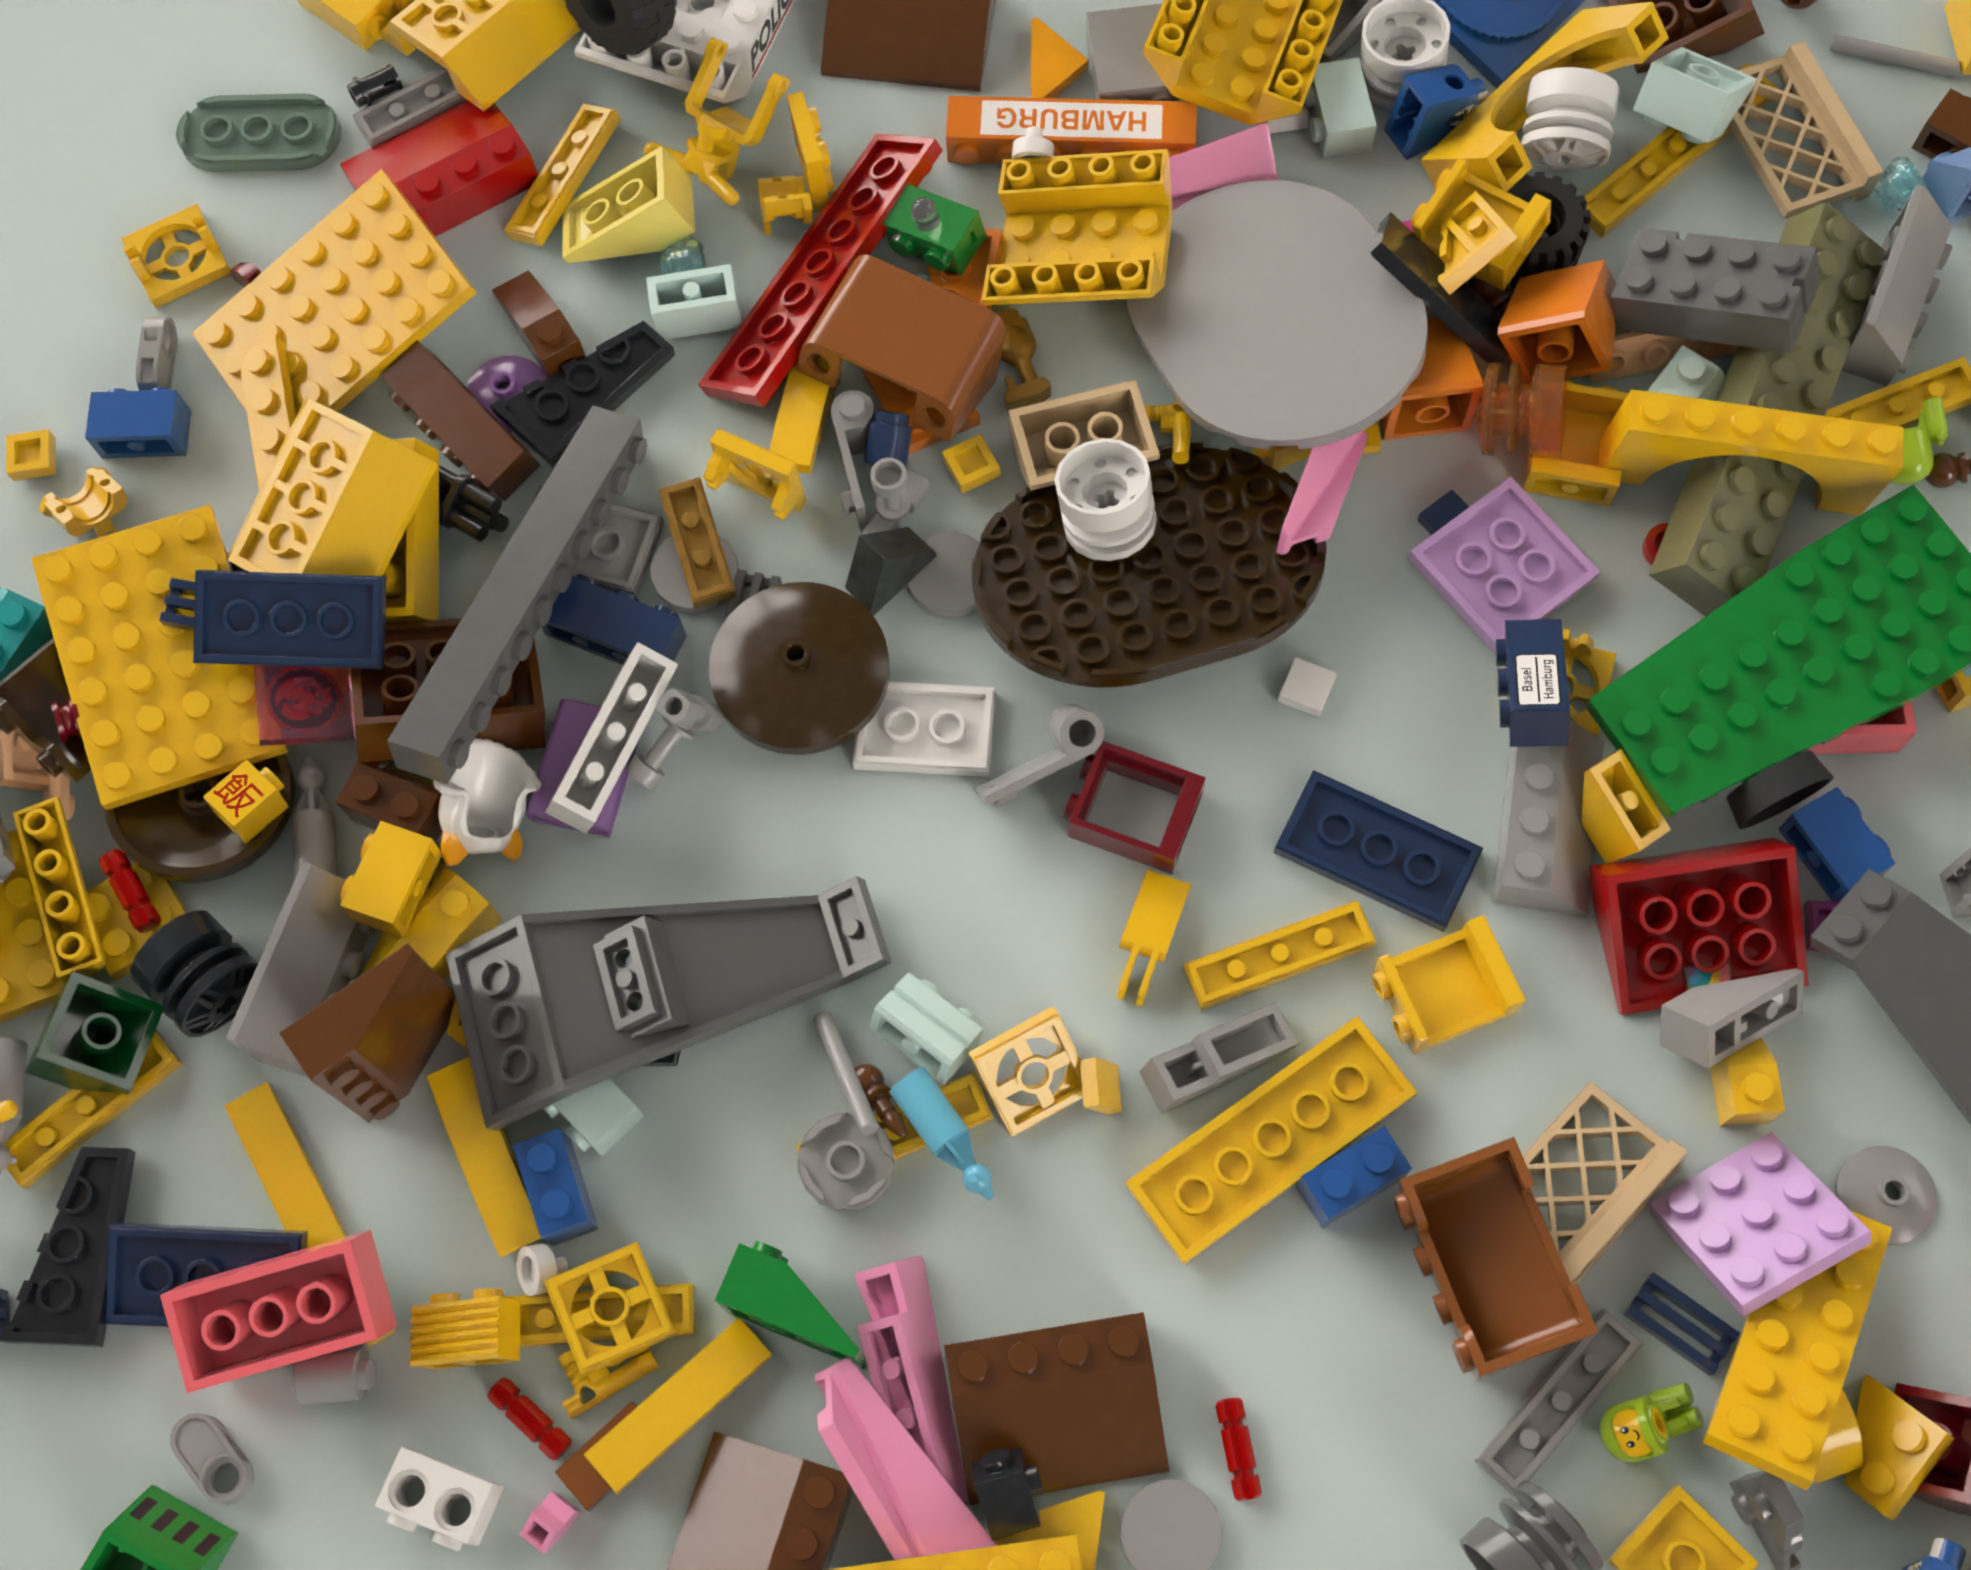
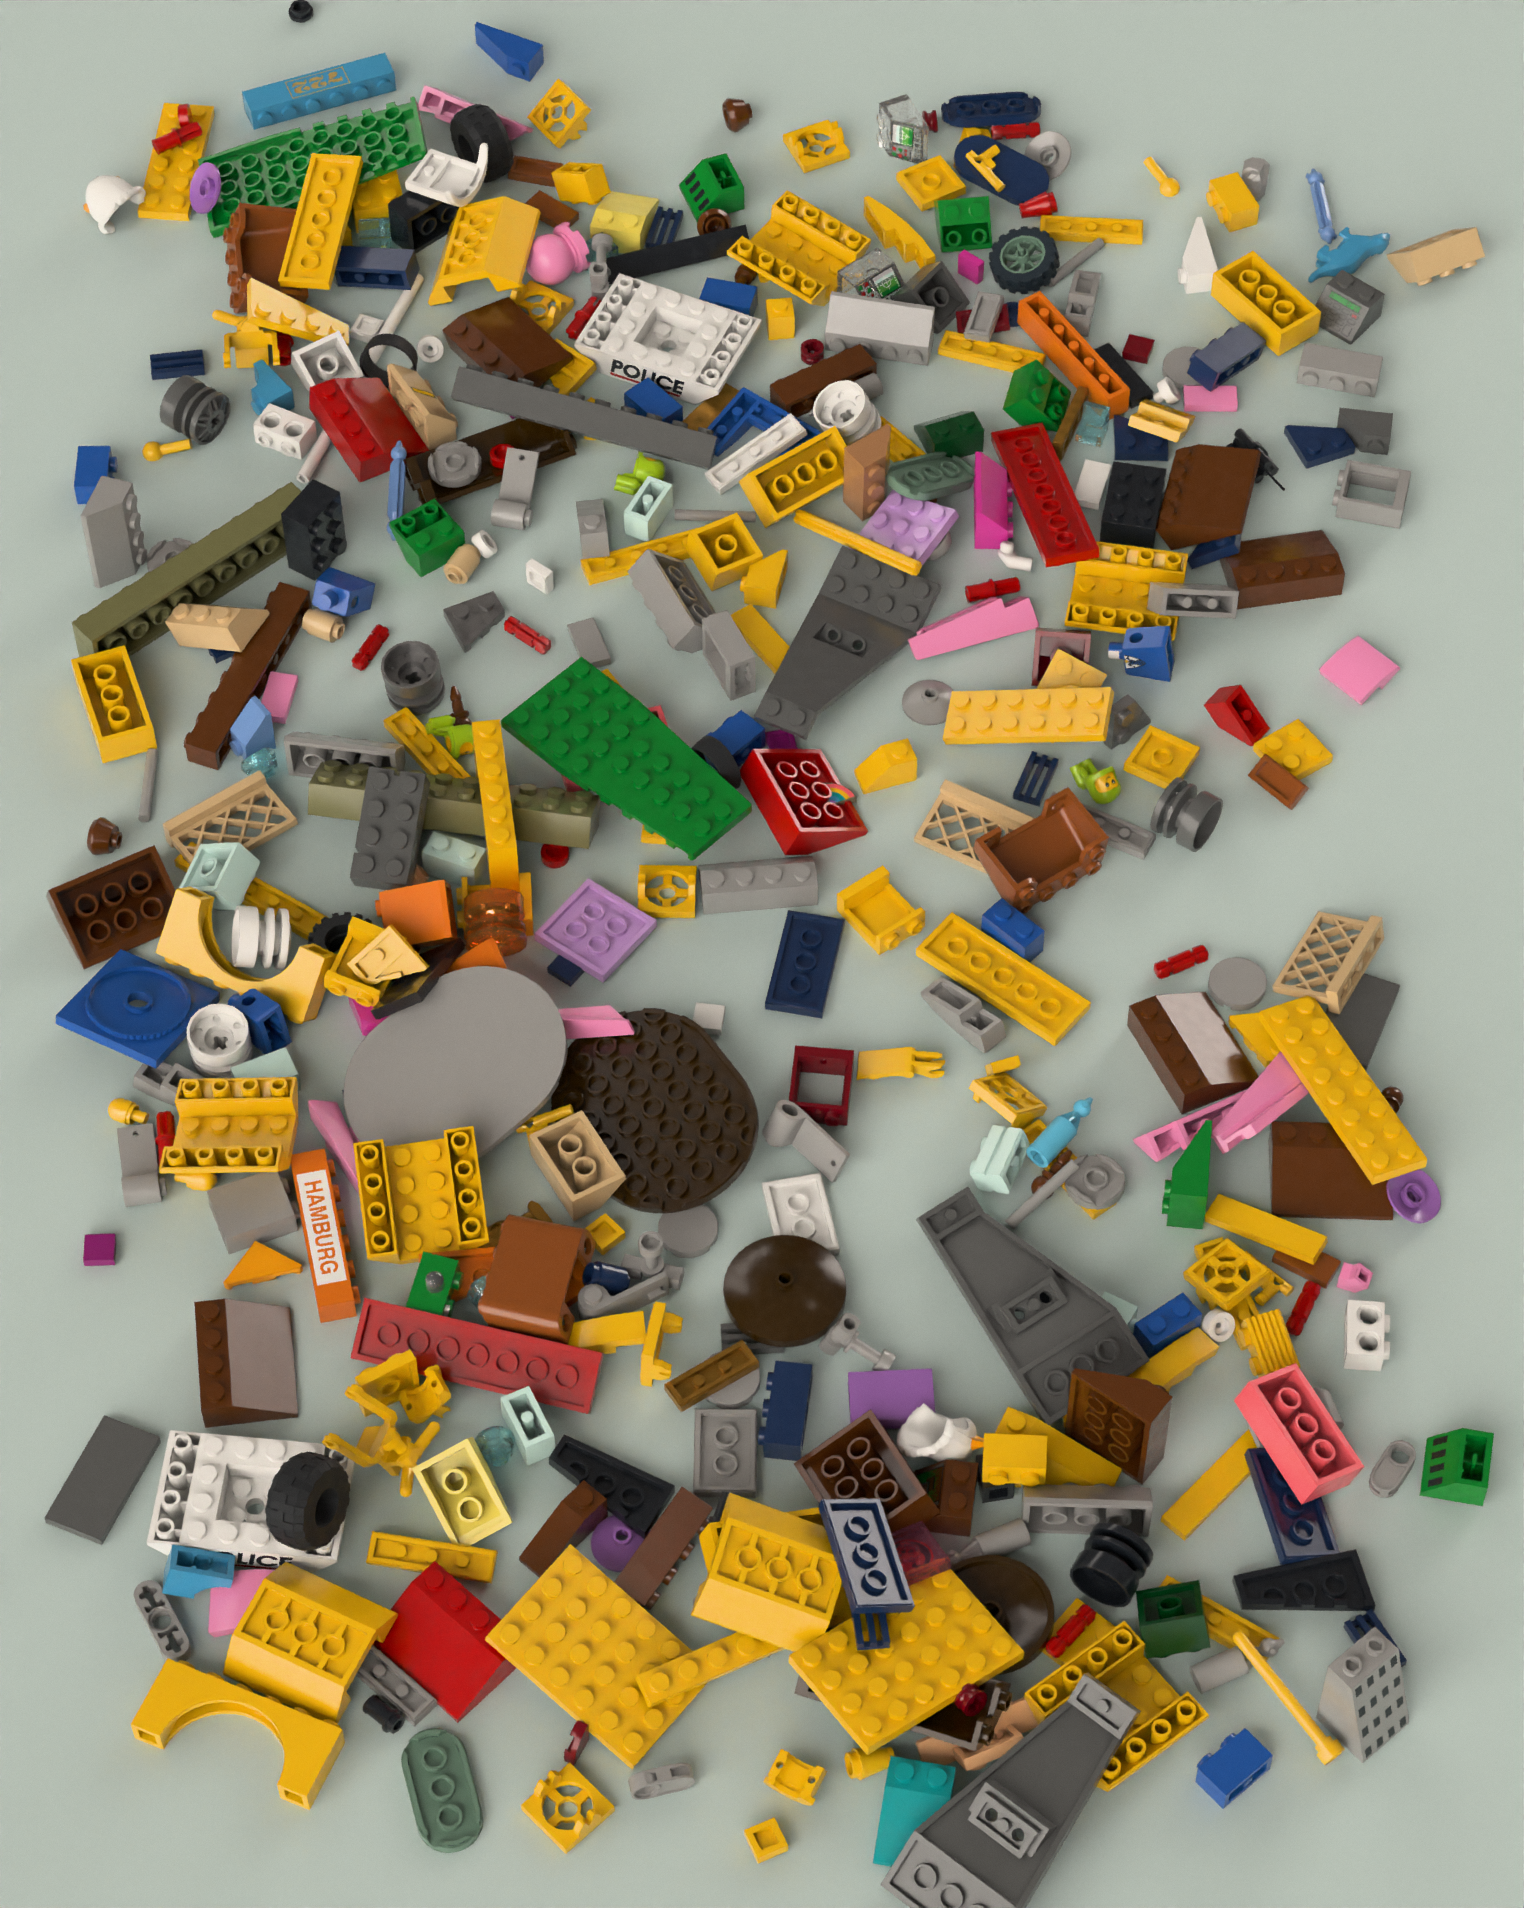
camera: 110 degrees left, 15 degrees down
(138, 423) = (720, 1771): blue brick -> none
(247, 800) = (990, 1565): yellow brick -> none
(517, 597) = (791, 1442): dark grey brick -> none
(611, 738) = (877, 1363): white brick -> none
(885, 565) = (698, 1259): pearl dark grey slope -> none
(1007, 1492) = (1250, 1053): black brick -> none
(1032, 145) = (355, 1241): white tile -> none
(1106, 499) = (629, 1123): white wheel -> none
(1279, 955) = (888, 1000): yellow tile -> none
(1533, 683) = (685, 885): dark blue brick -> none
(1619, 809) = (753, 837): yellow slope -> none
(1729, 1015) = (858, 777): light grey slope -> none
(1759, 1224) = (972, 743): lavender plate -> none

